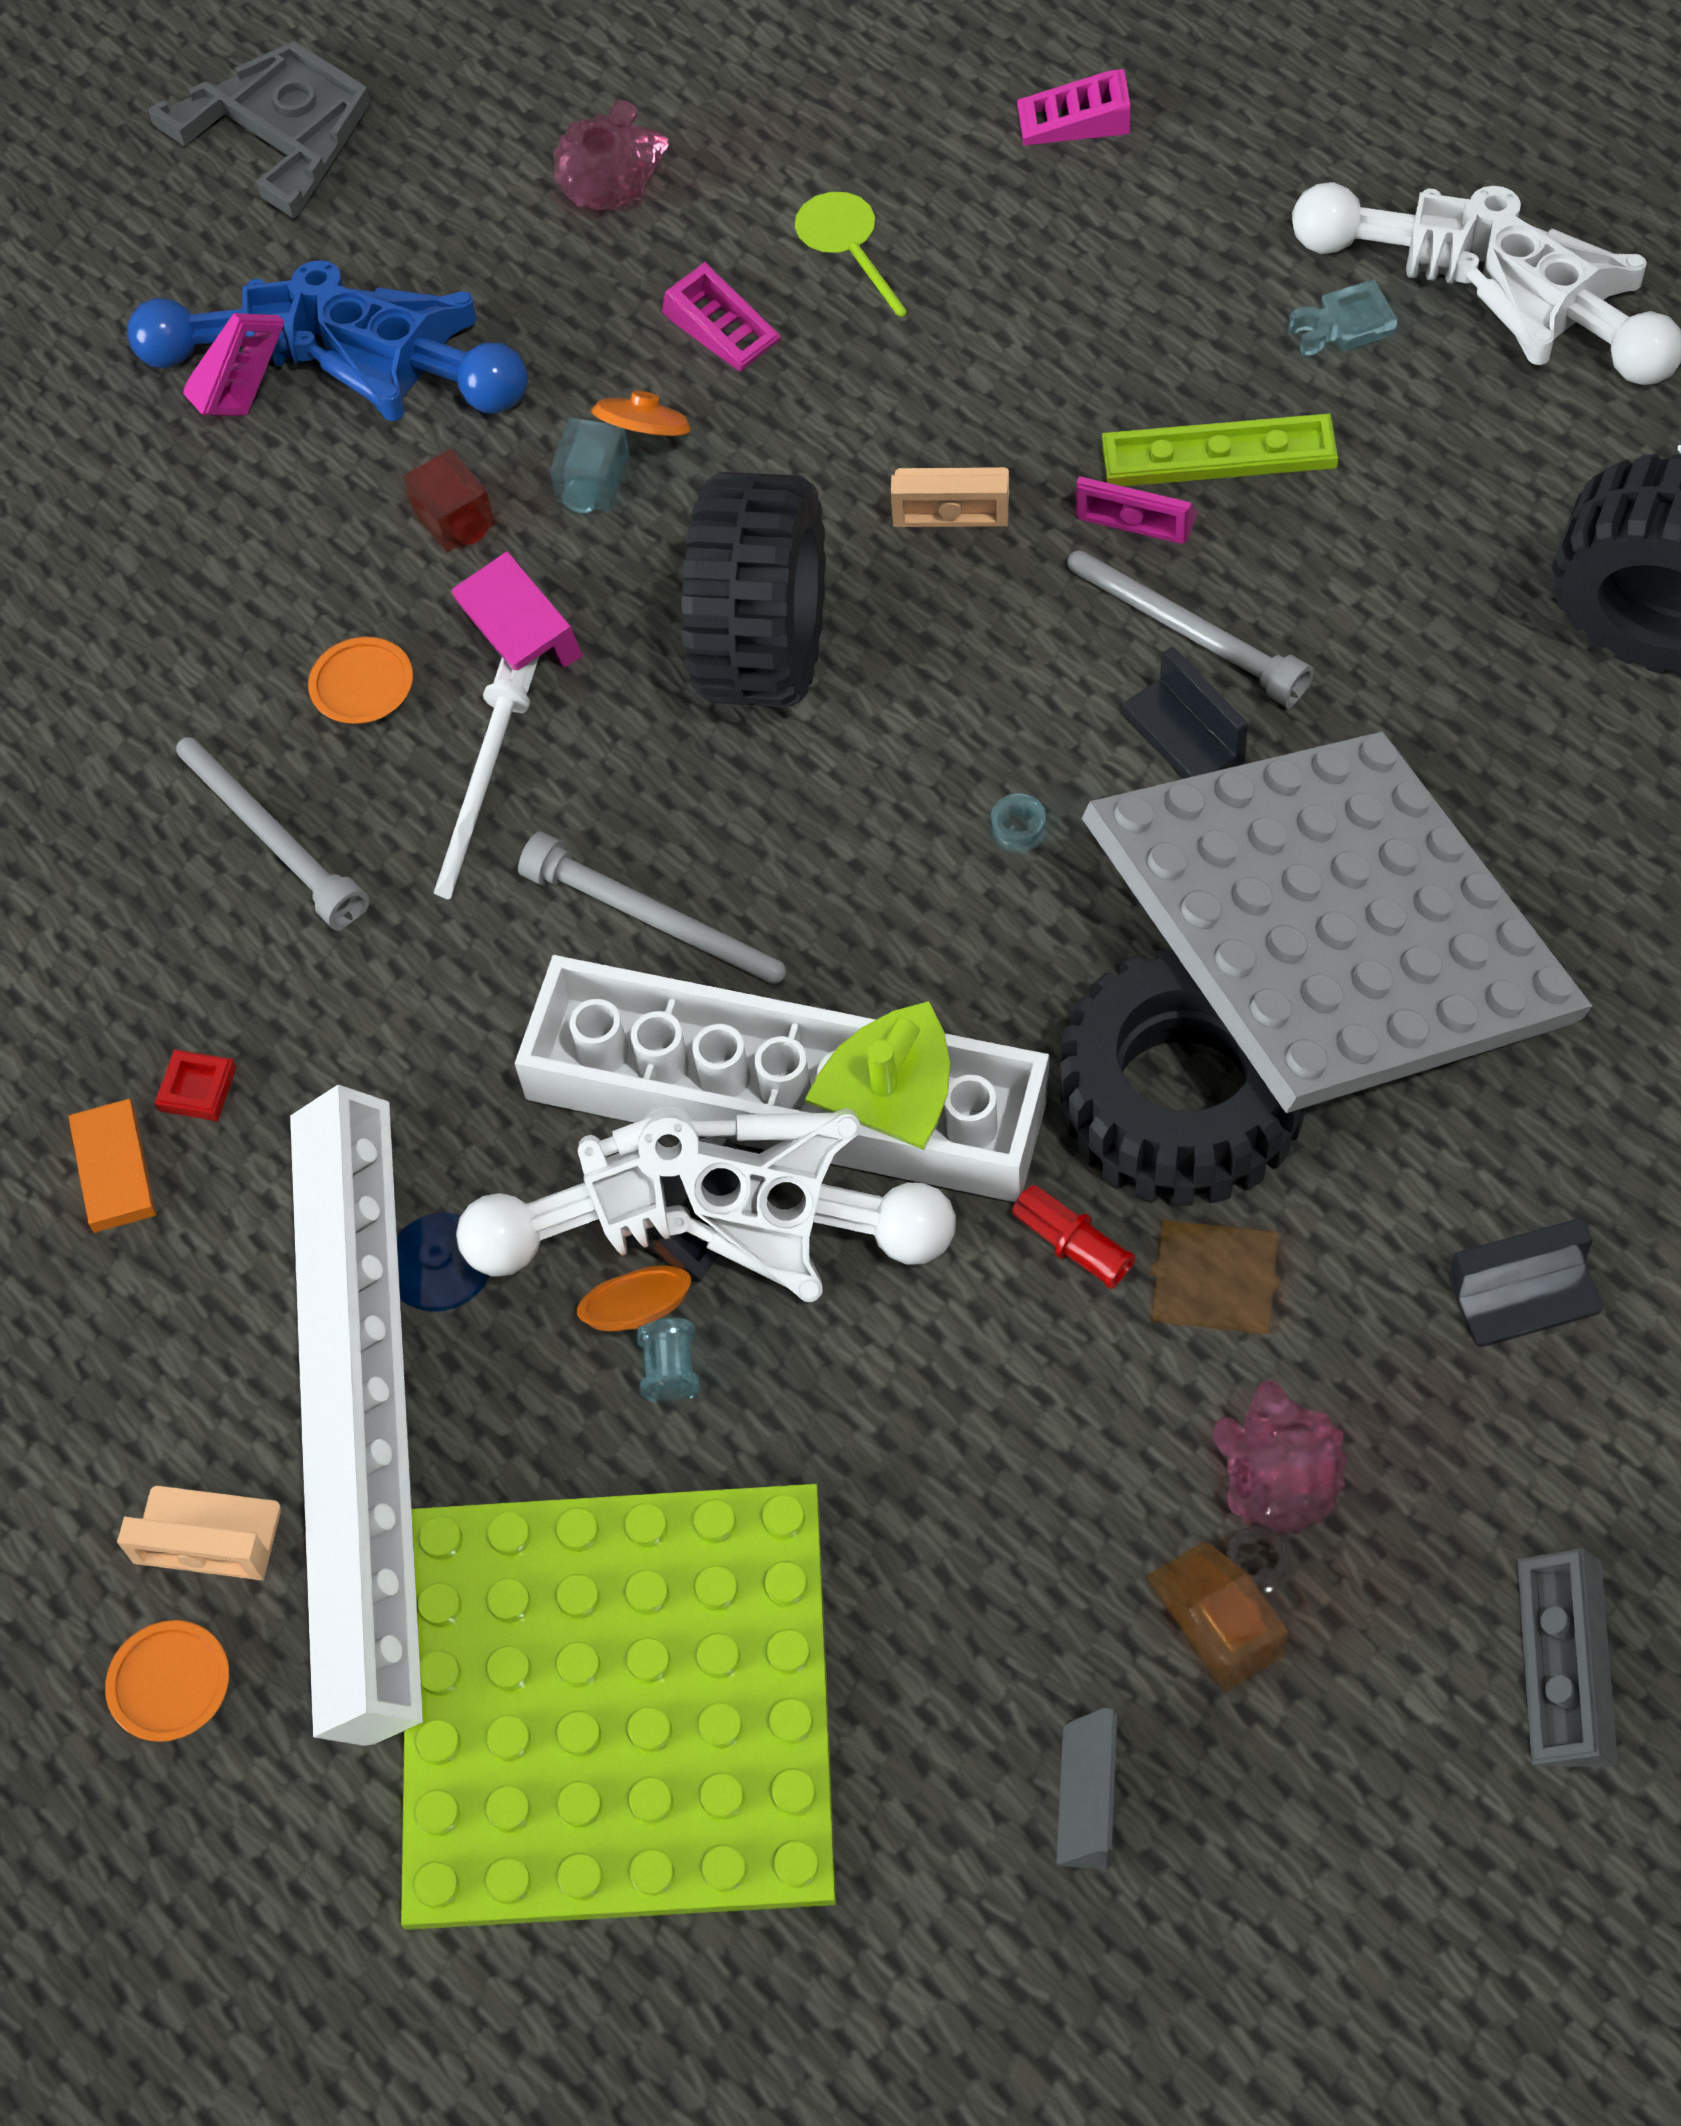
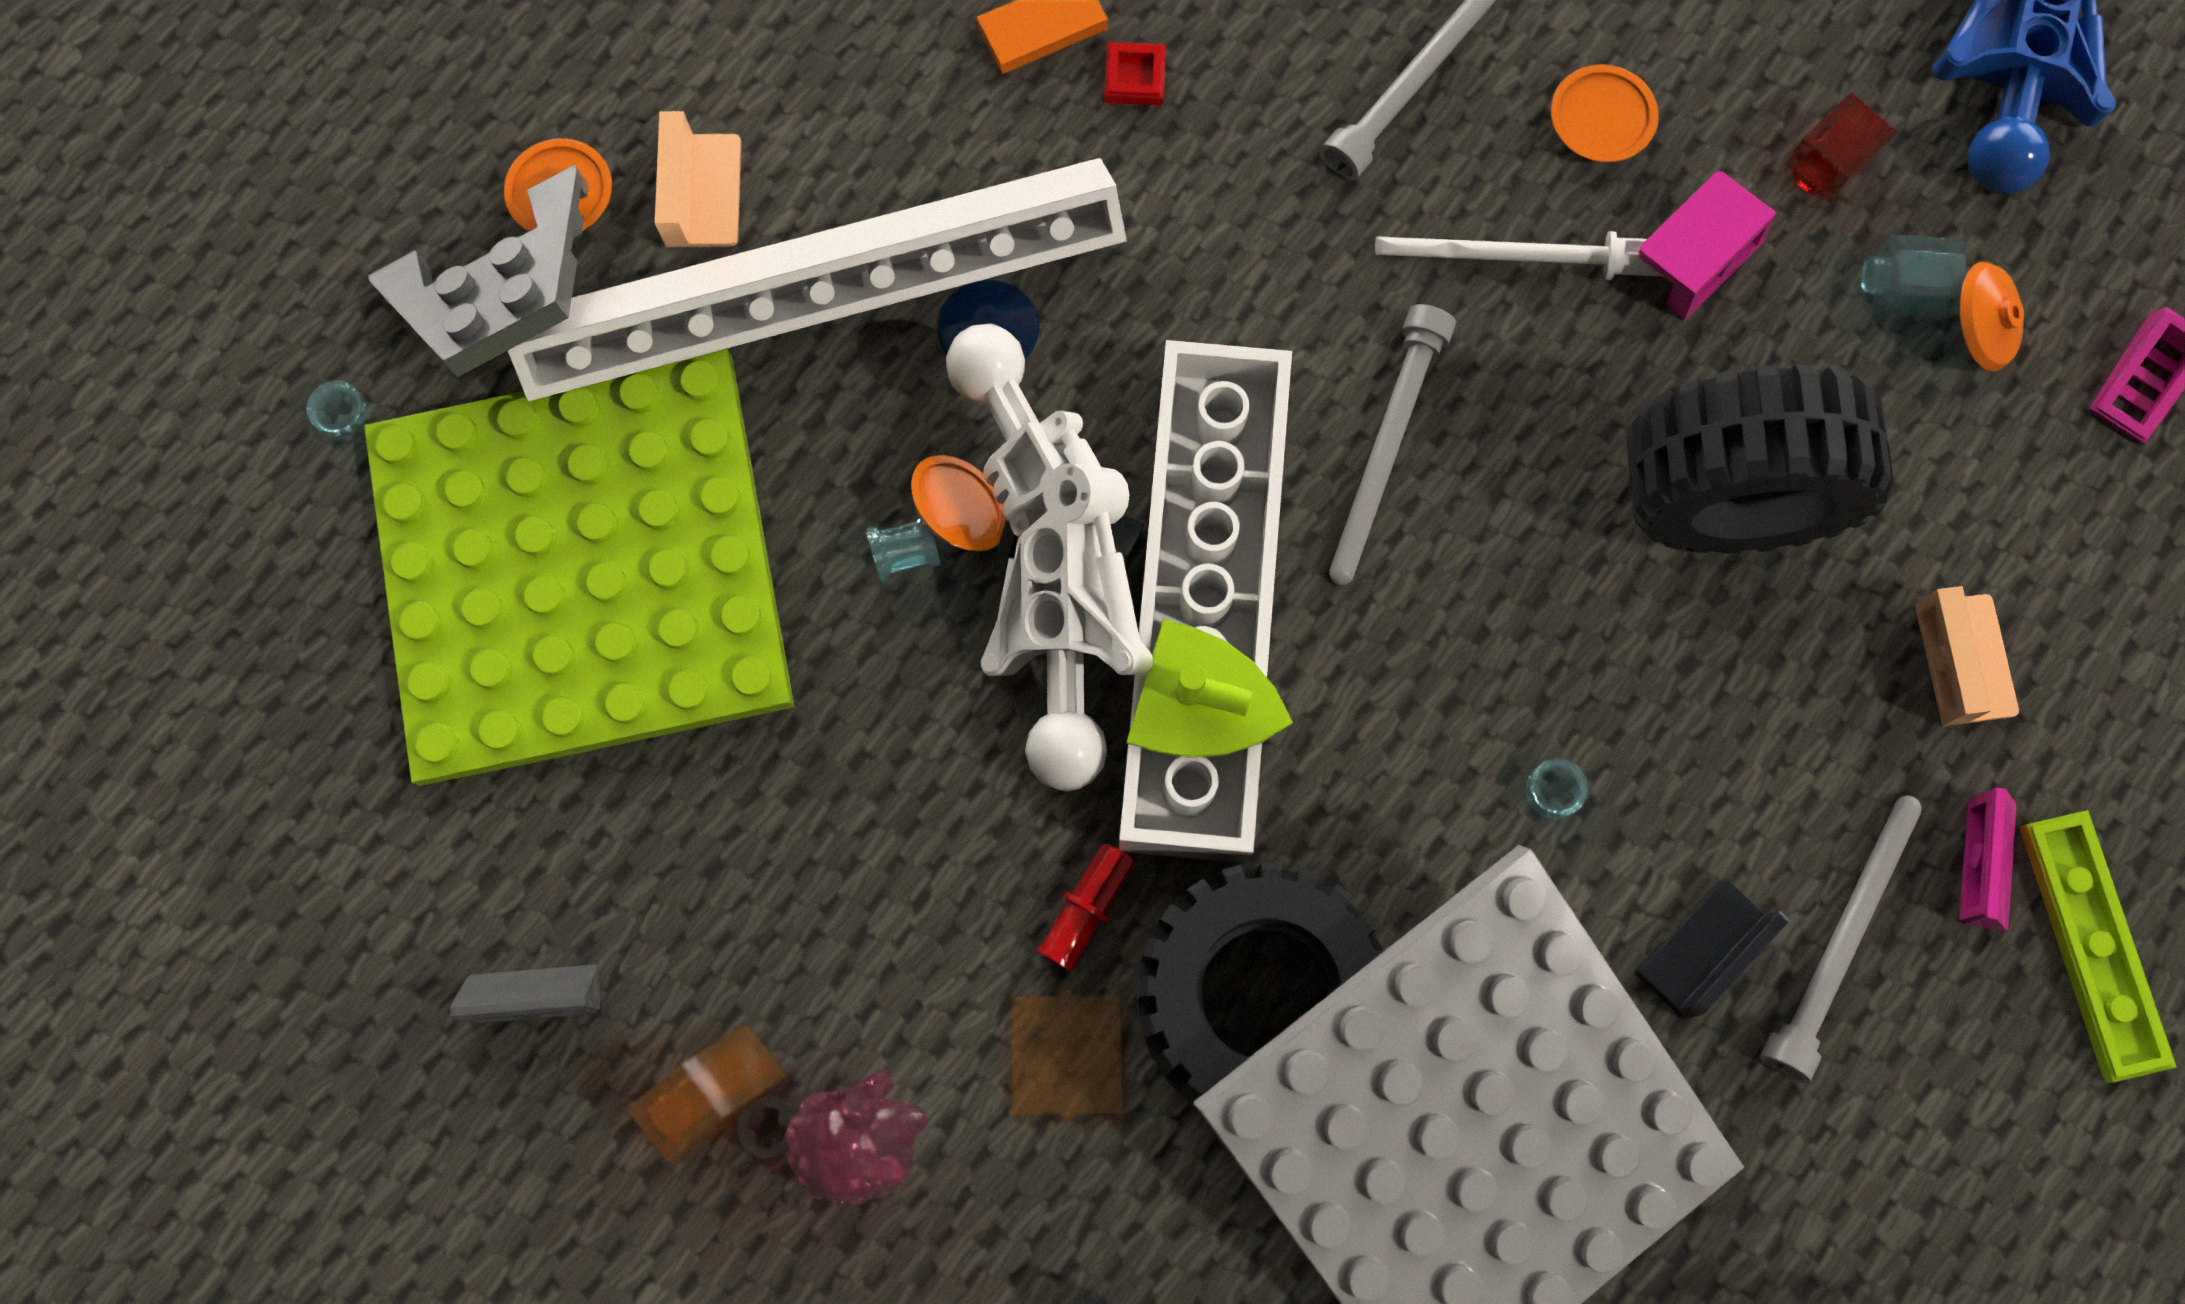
camera: 75 degrees right, 15 degrees up
(302, 1737) = (503, 295): none -> wing
(355, 1969) = (330, 395): none -> clear light blue bush

